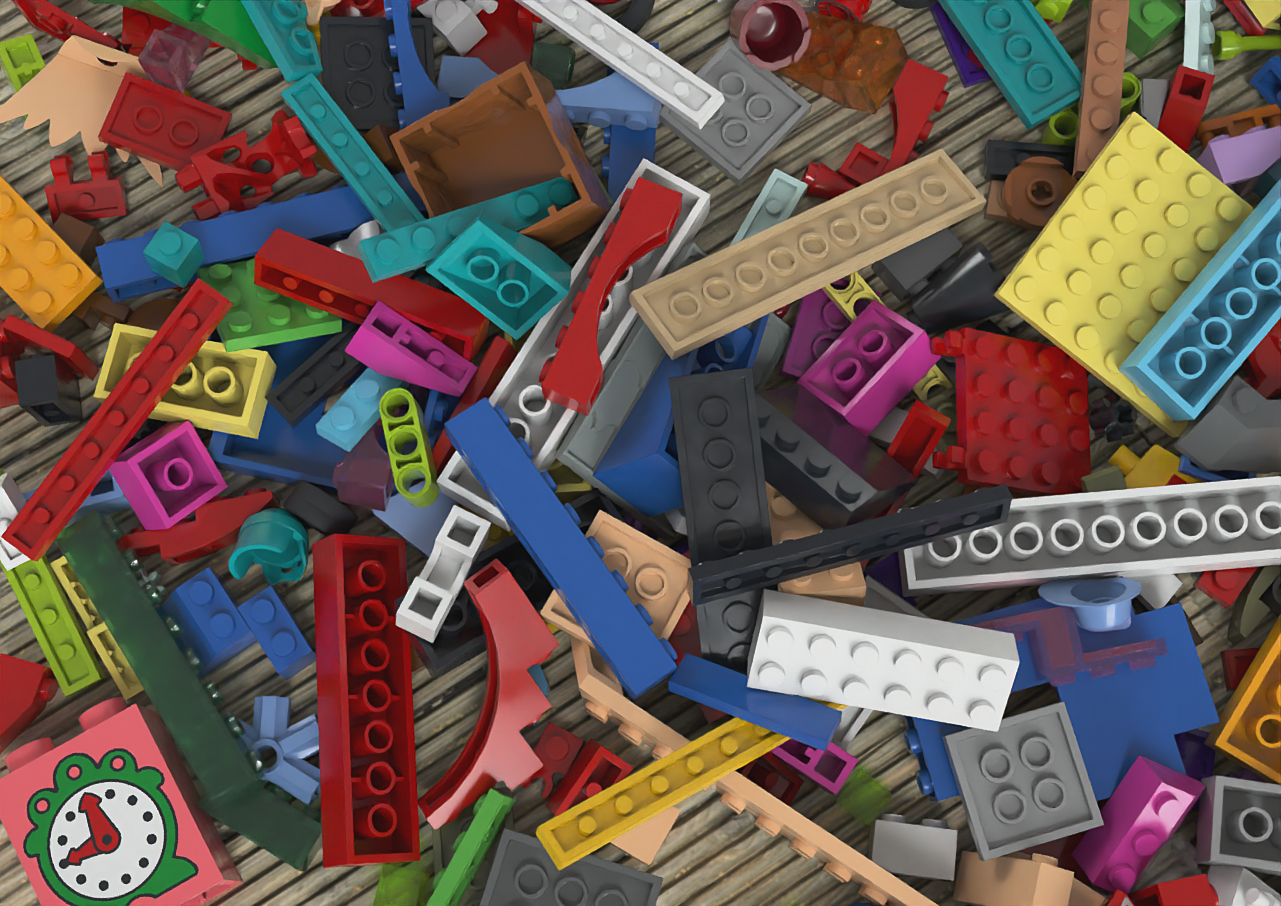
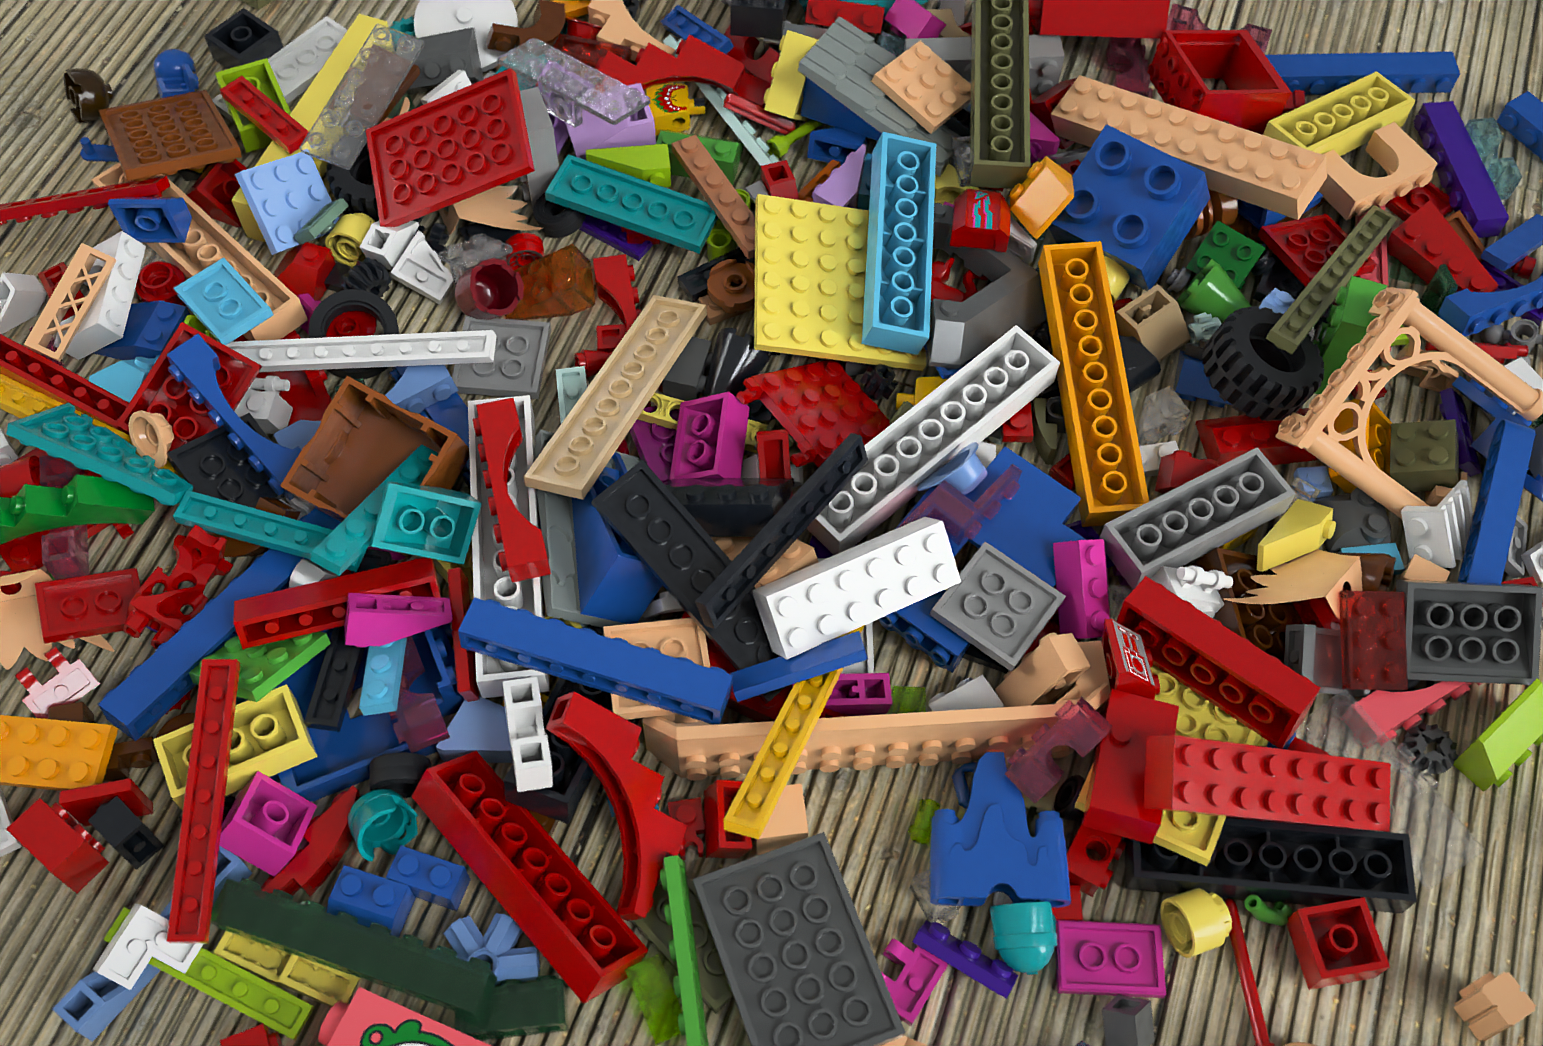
camera: 40 degrees left, 15 degrees down
(174, 254) = (167, 666): teal brick -> none
(401, 431) = (429, 666): lime beam -> none

